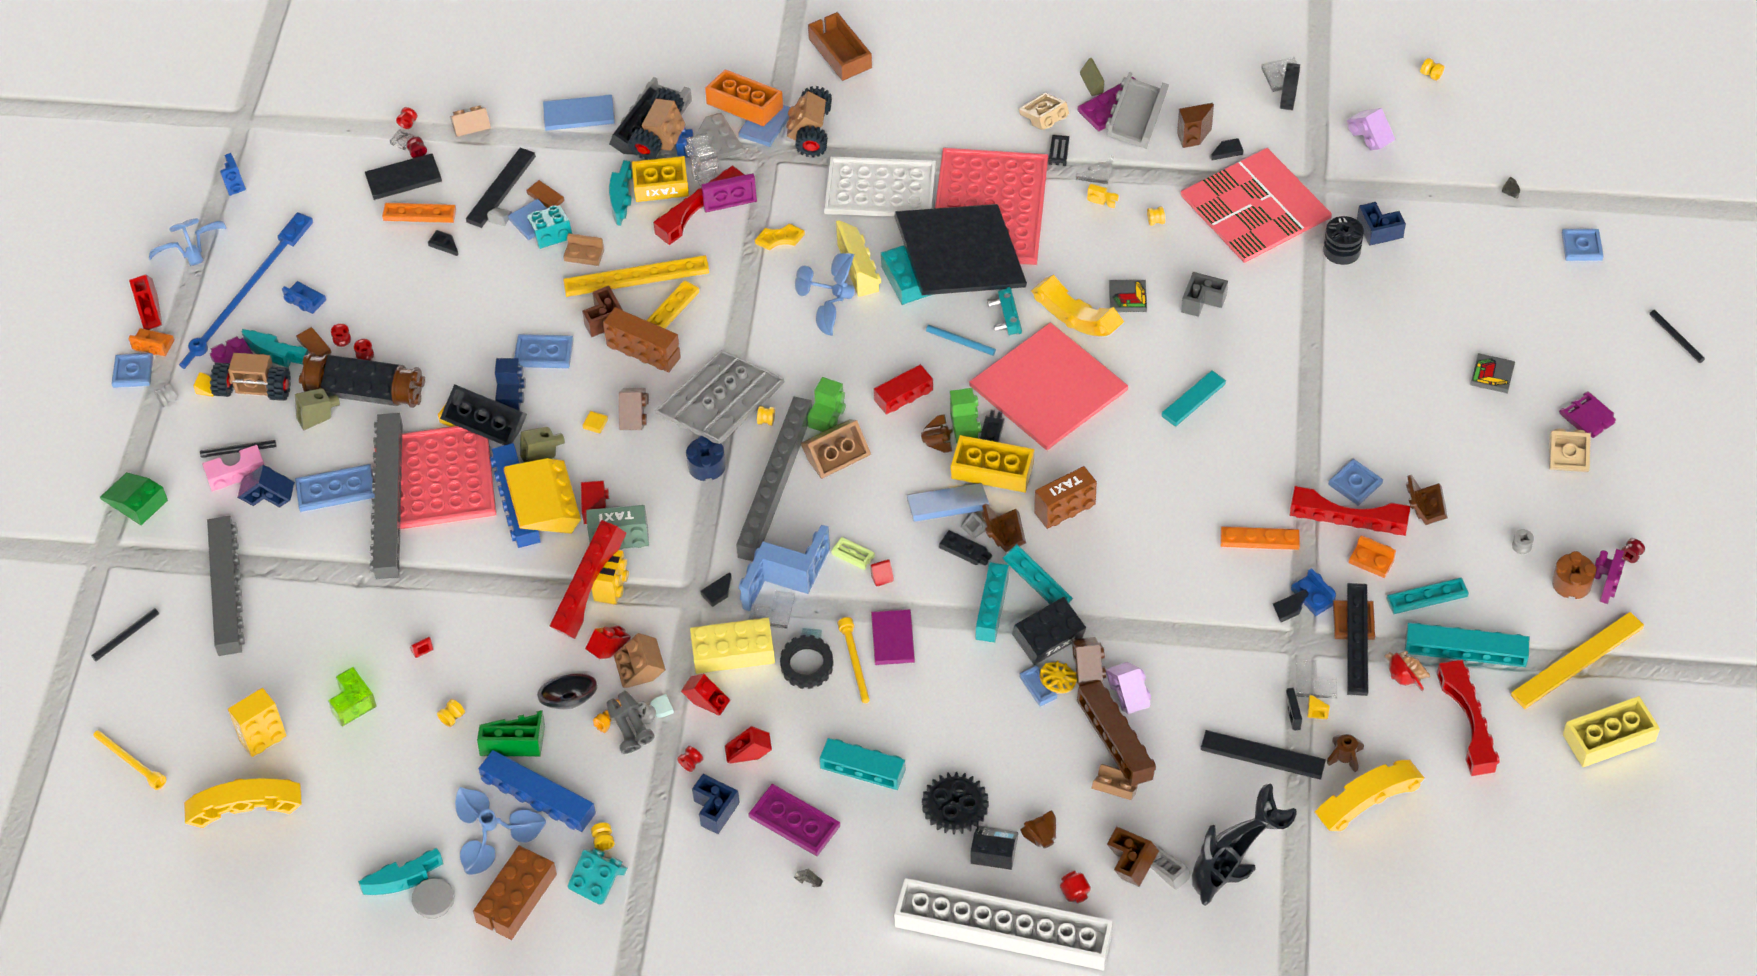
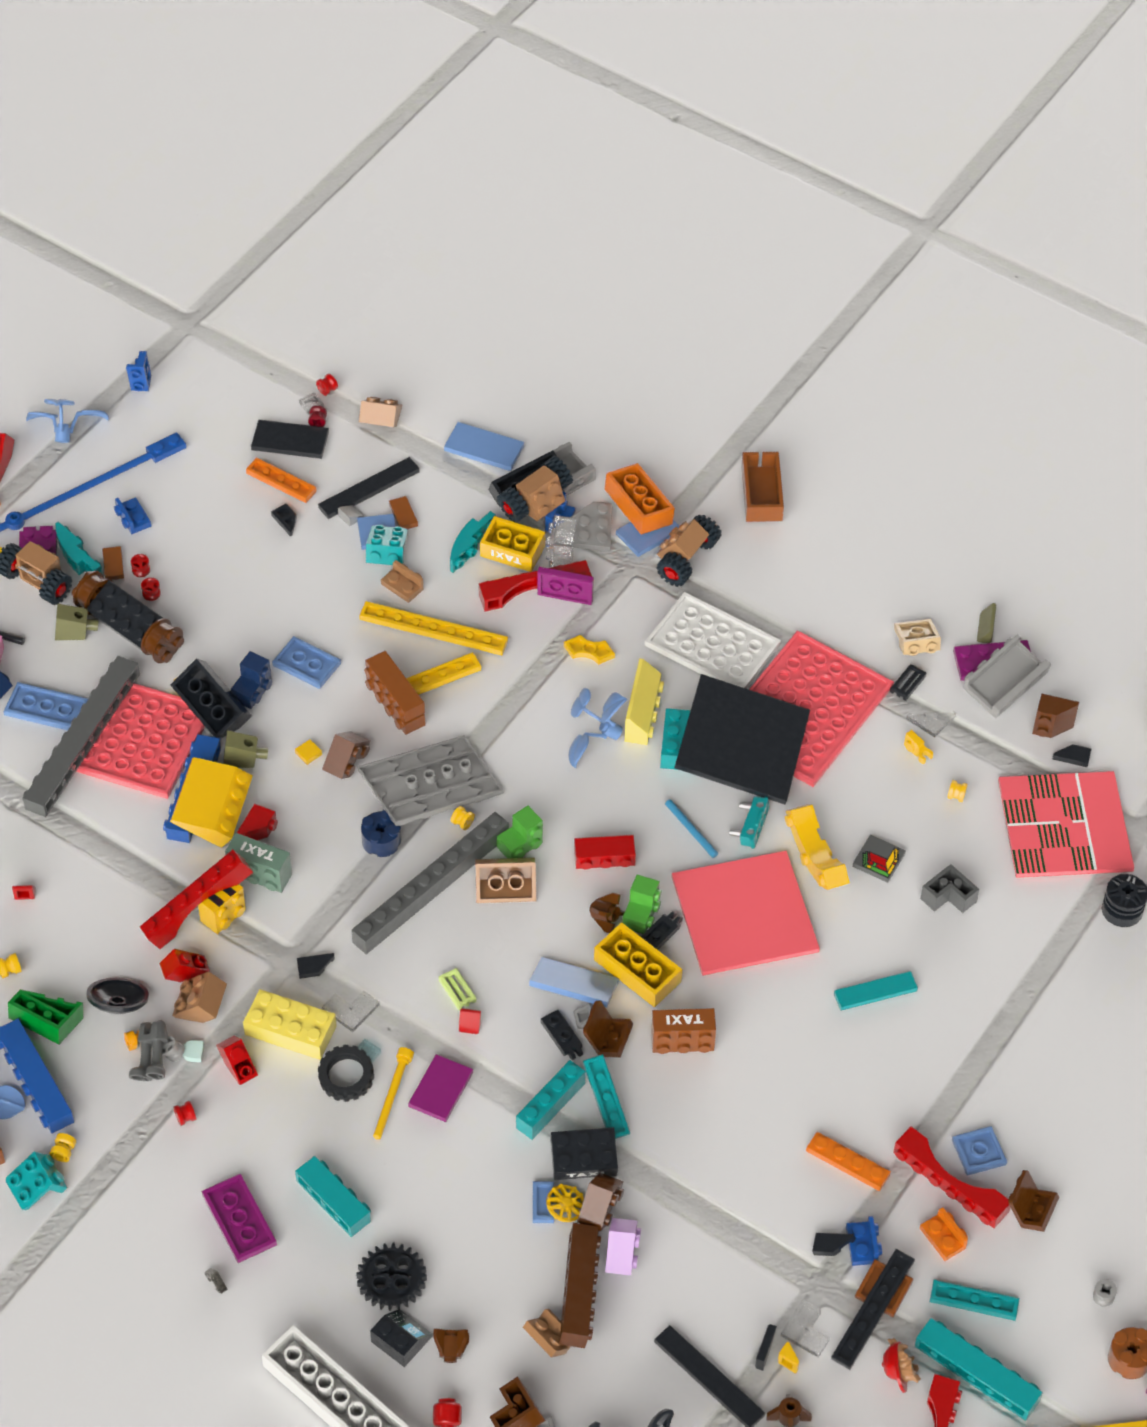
camera: 25 degrees right, 0 degrees up
(603, 305) = (386, 641): copper brick -> none
(717, 801) = (180, 1168): dark blue brick -> none
(748, 746) = (243, 1127): red slope -> none
(784, 567) = (382, 973): medium blue bracket -> none

